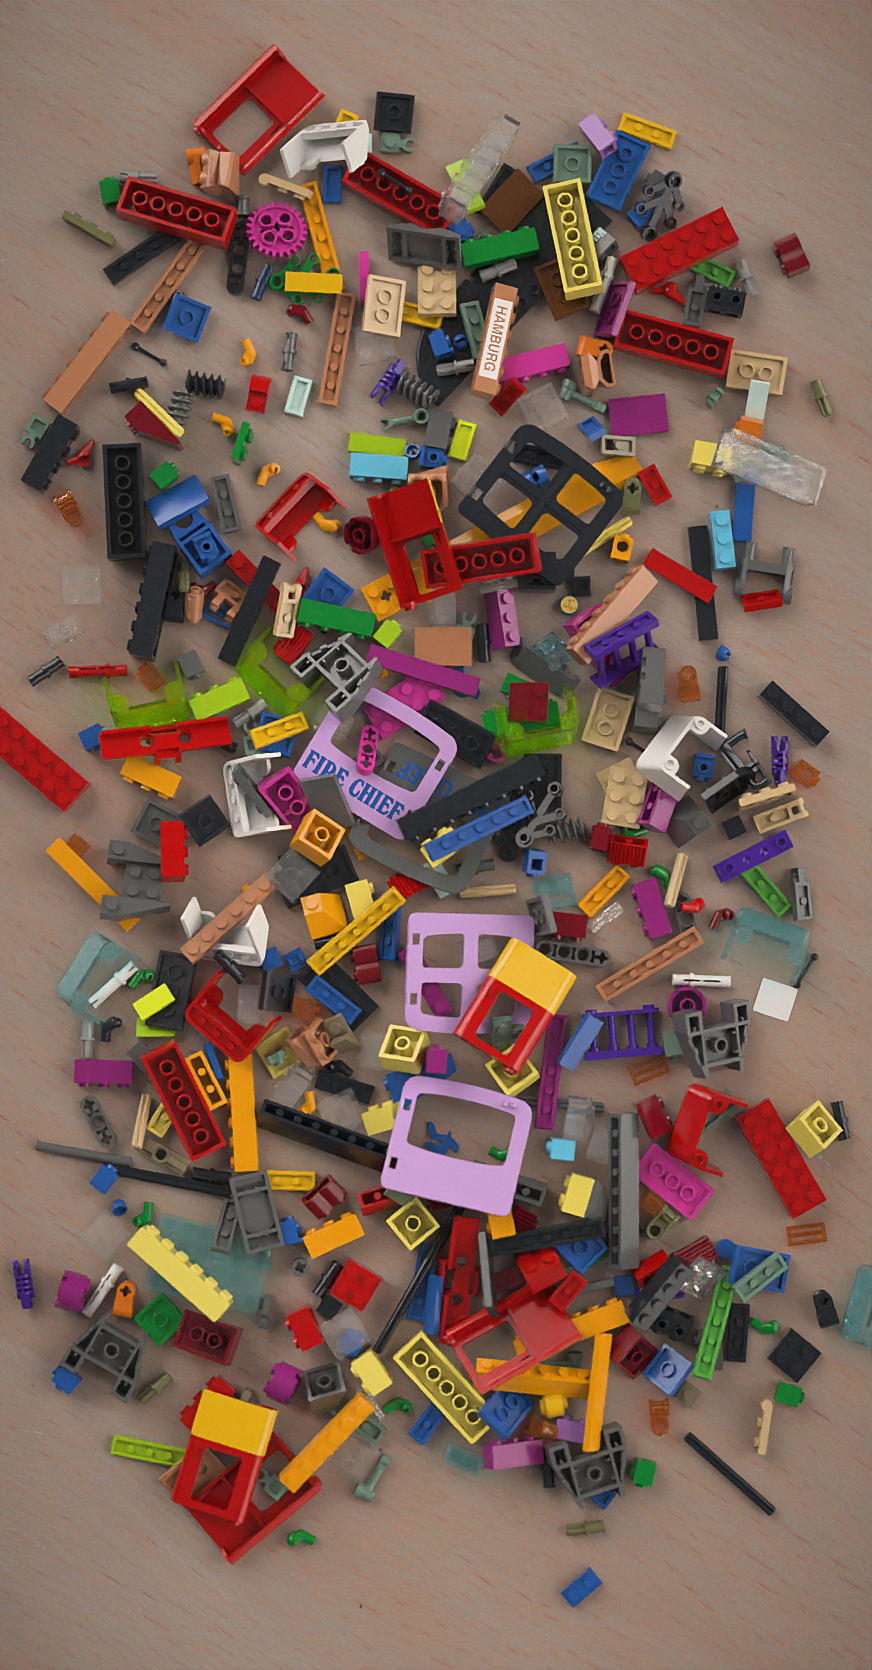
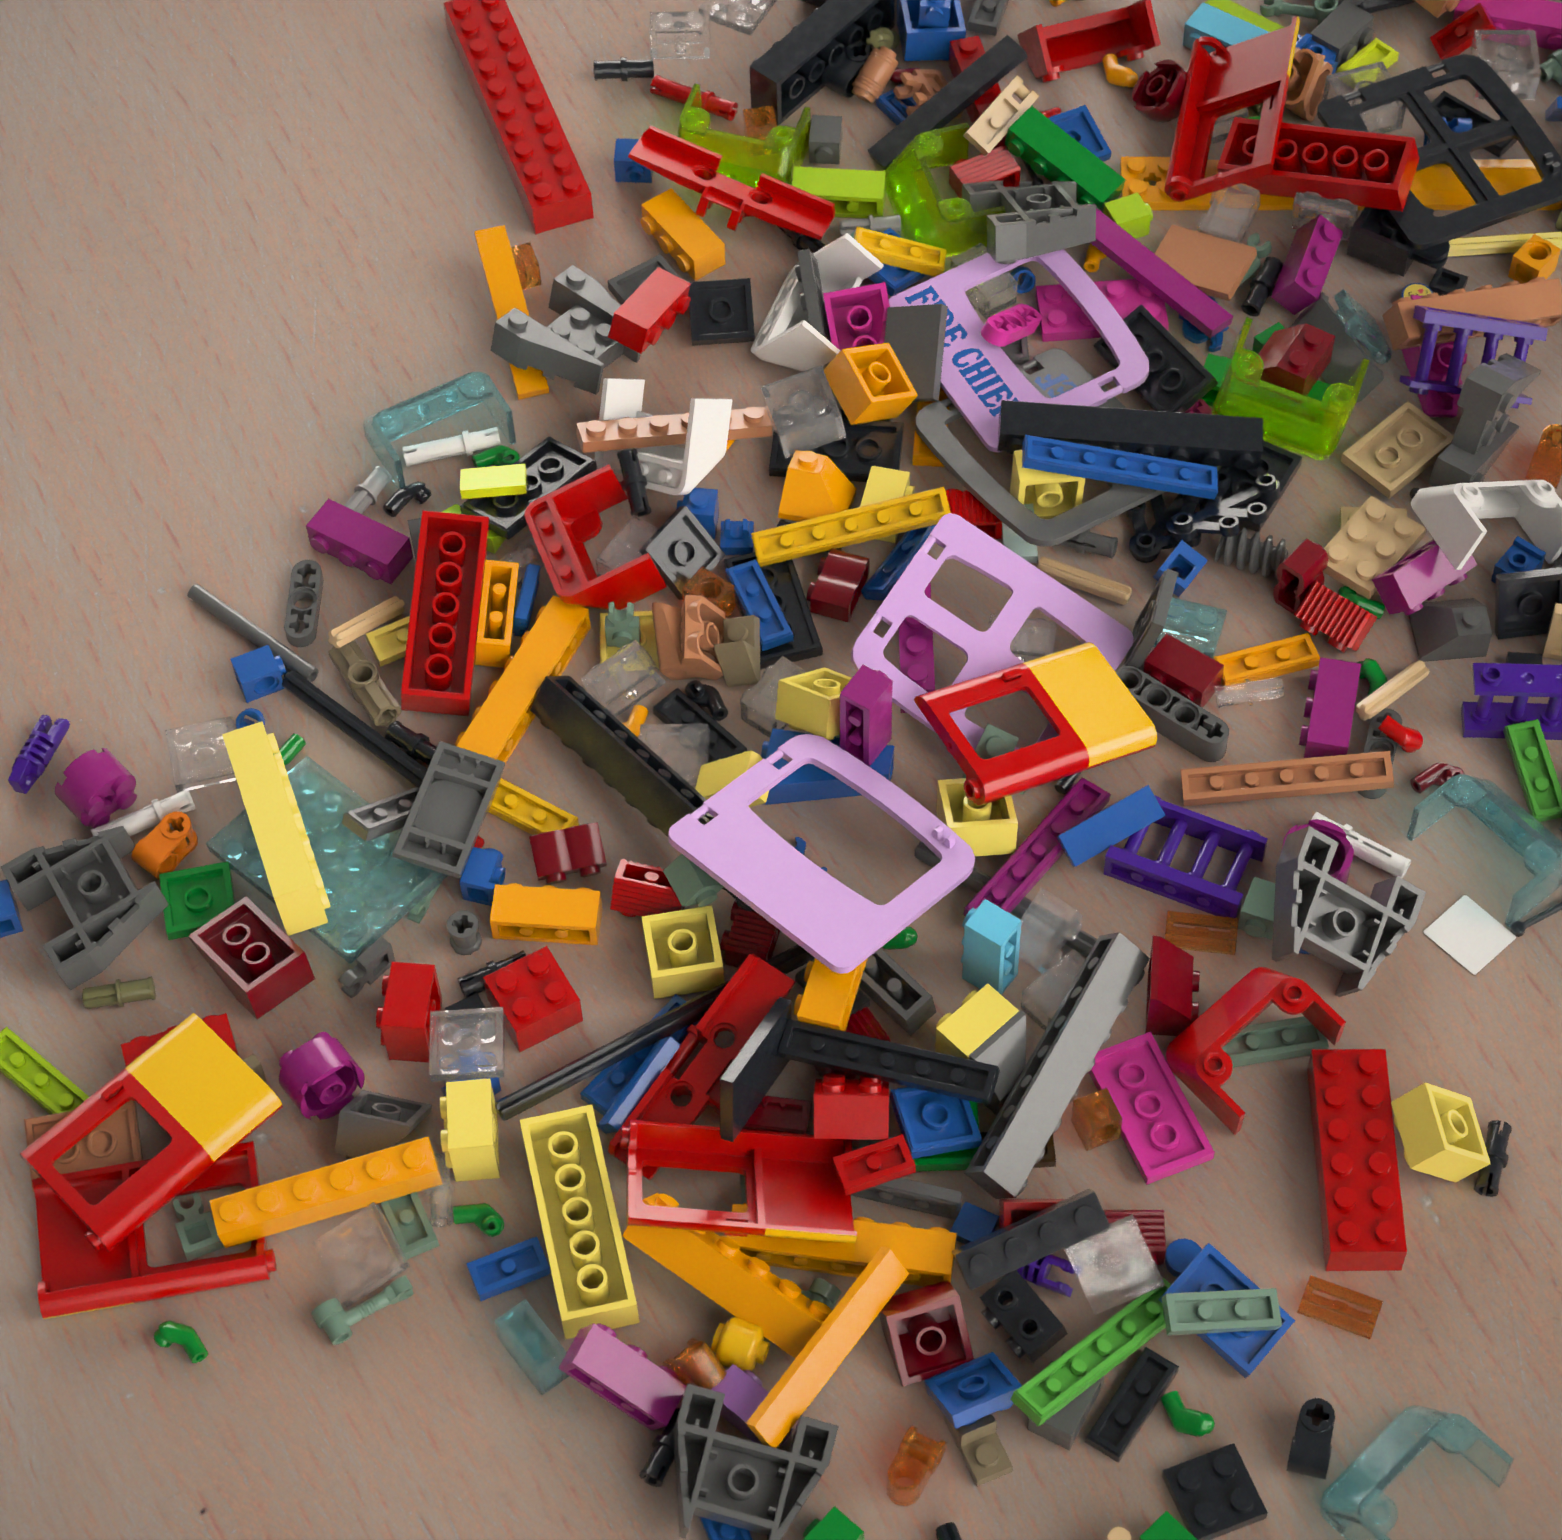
camera: 30 degrees right, 30 degrees down
(505, 1411) = (653, 1299): blue tile -> none
(662, 1222) = (1100, 1158): olive piece -> none

